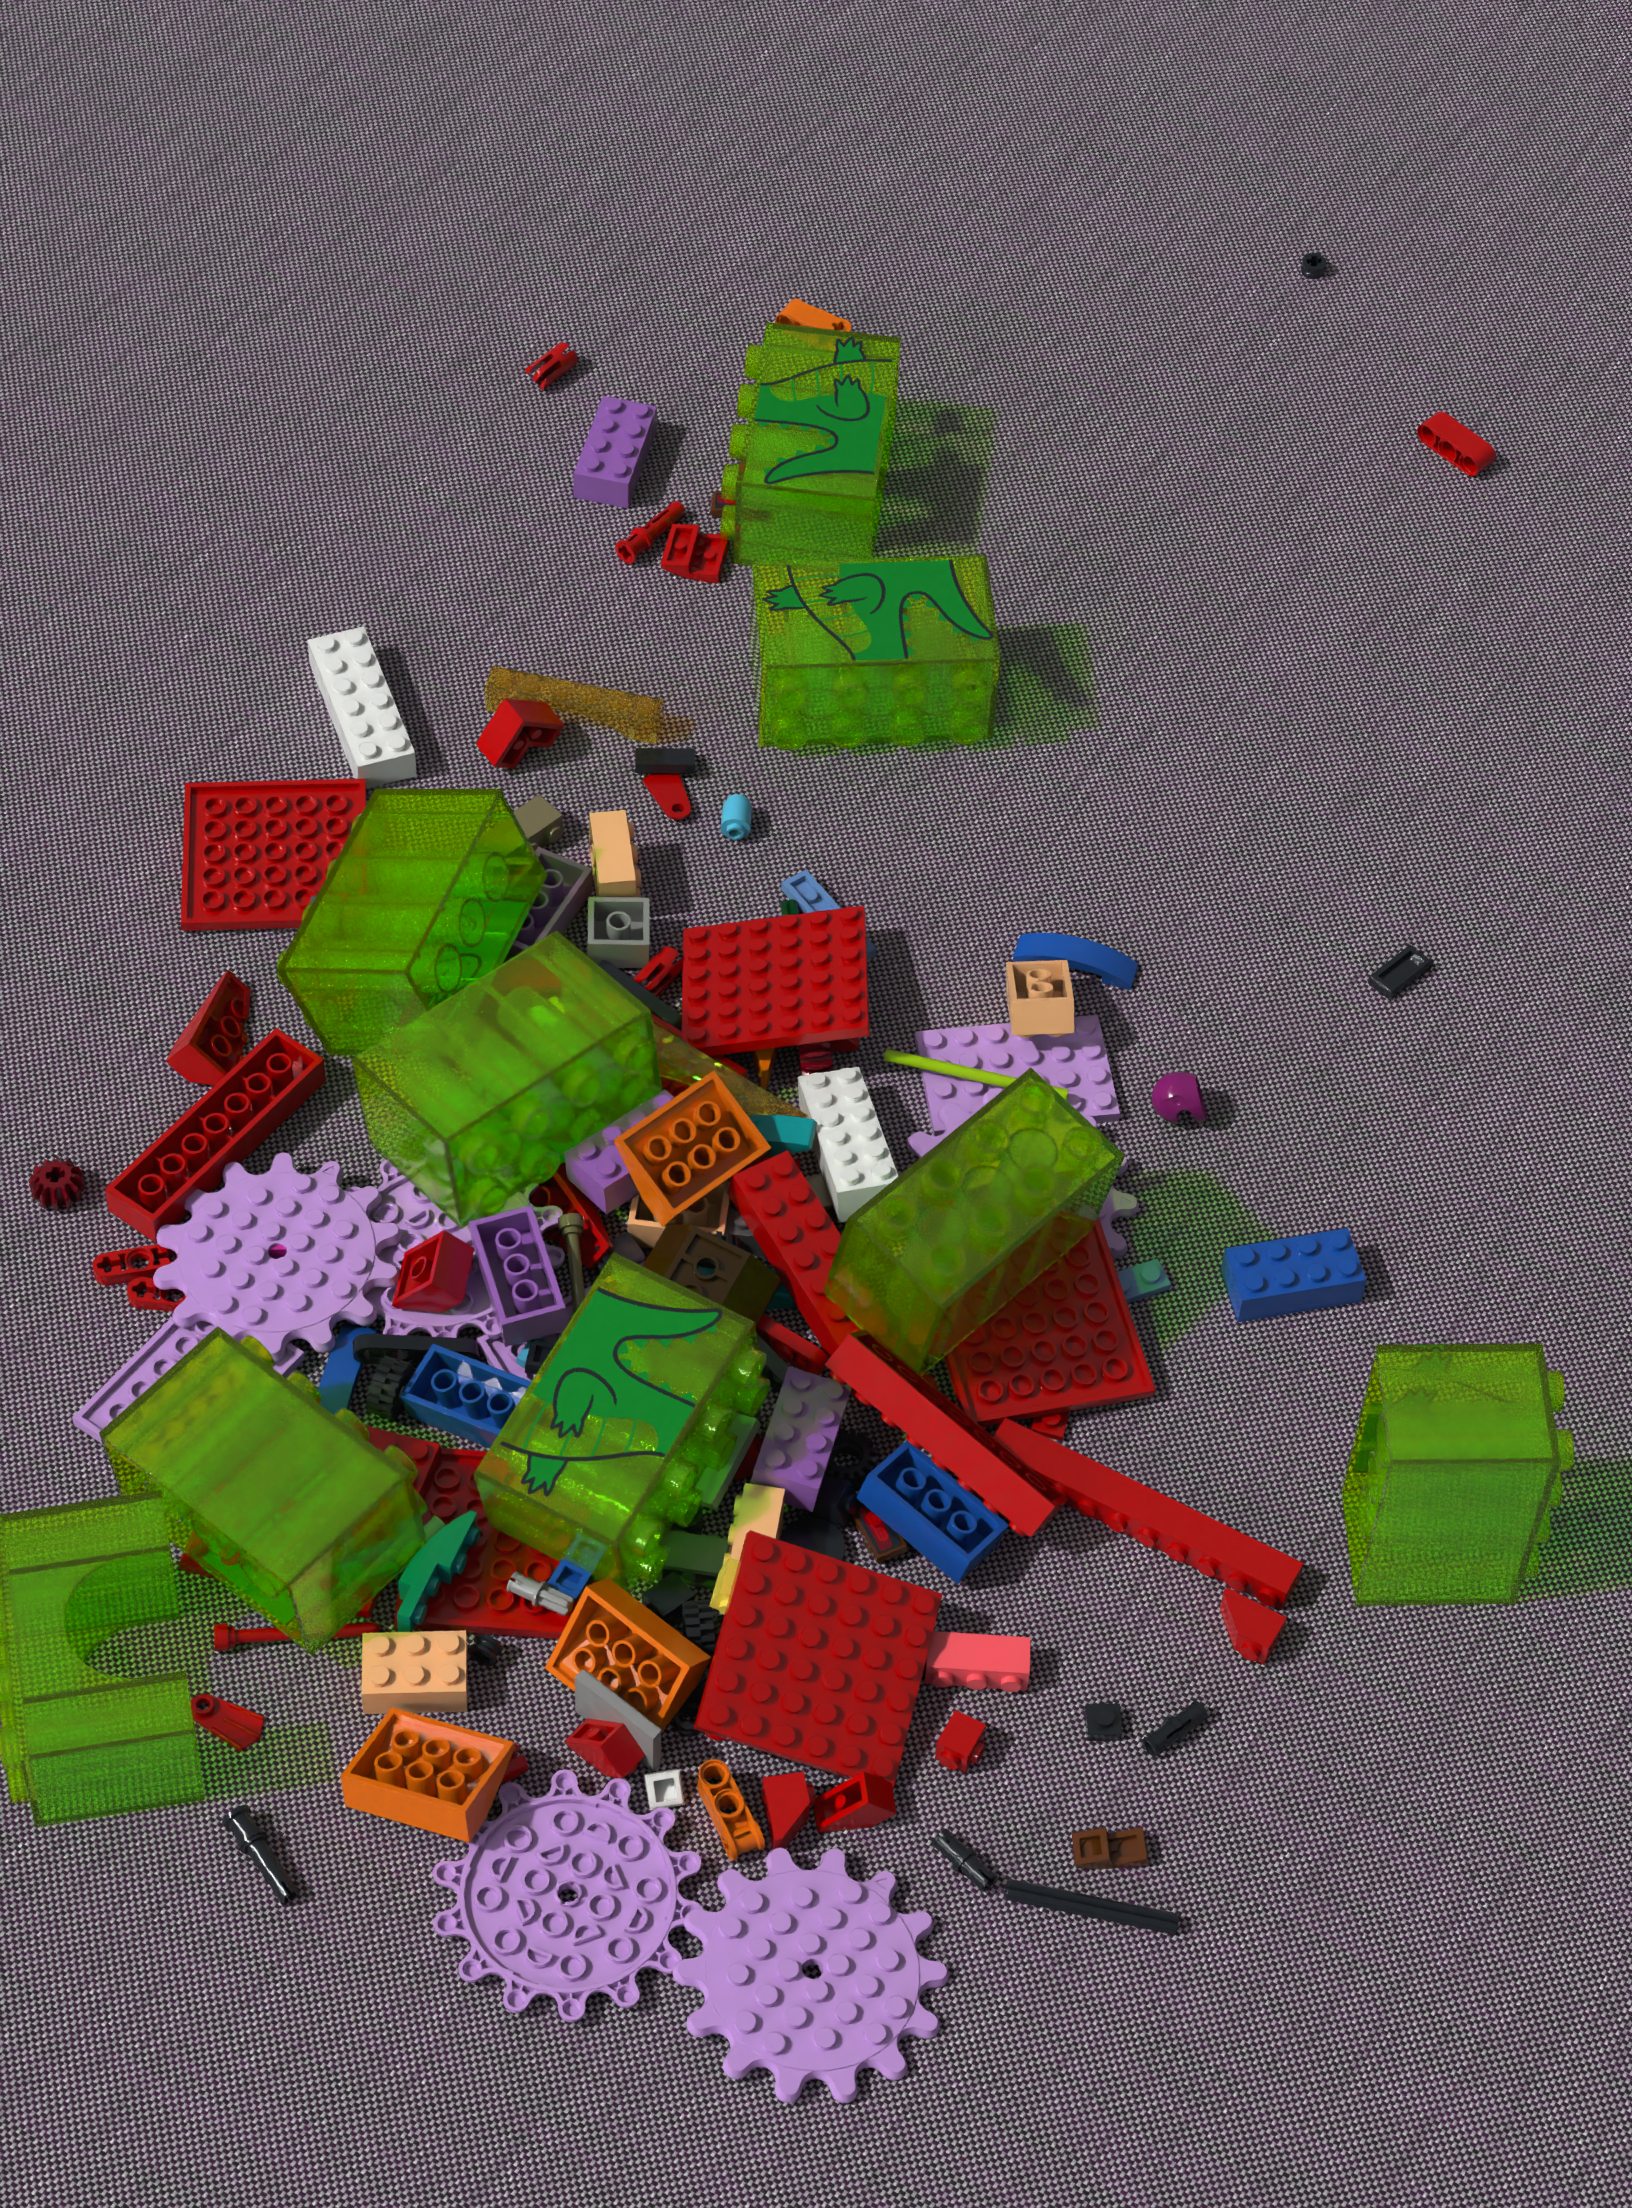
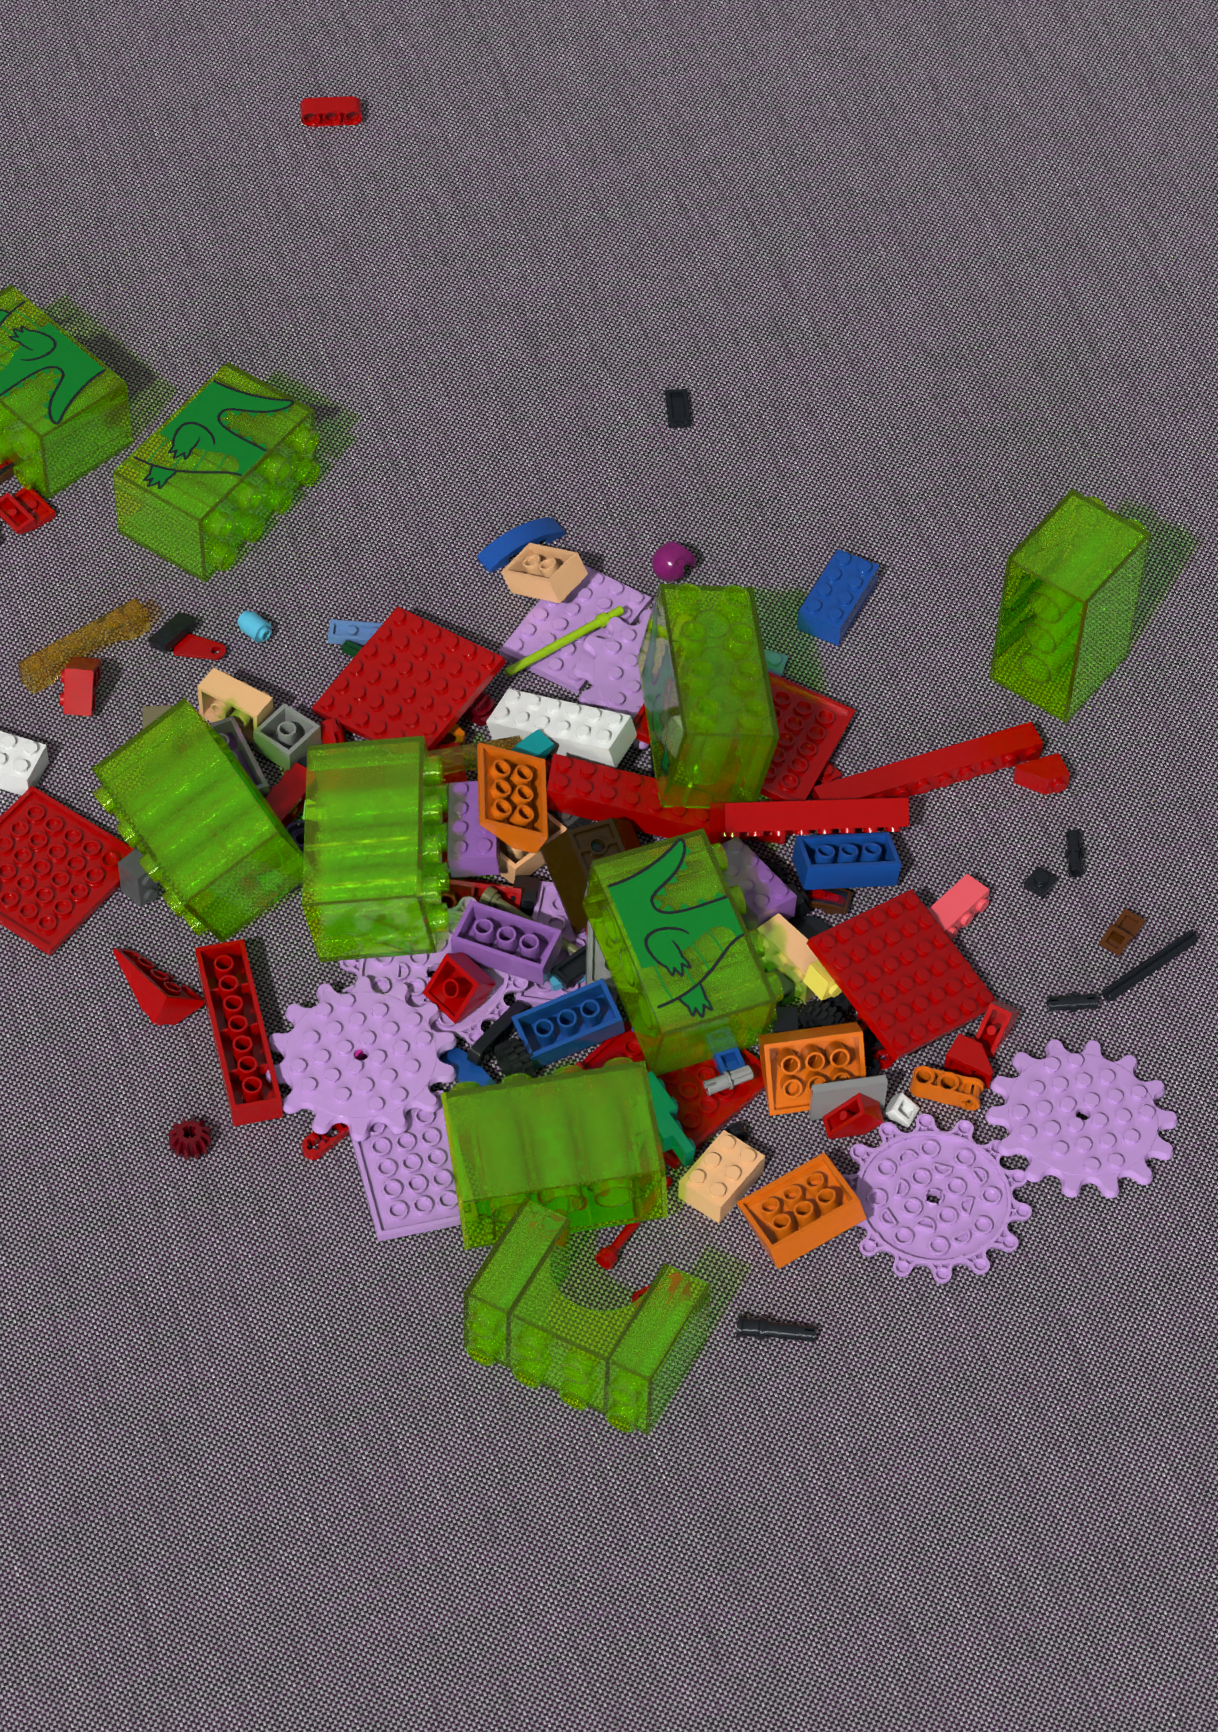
camera: 50 degrees left, 0 degrees up
(115, 1259) = (290, 1145): red beam -> none
(961, 1742) = (999, 952): red brick -> none
(1308, 263) = (121, 80): black bush -> none

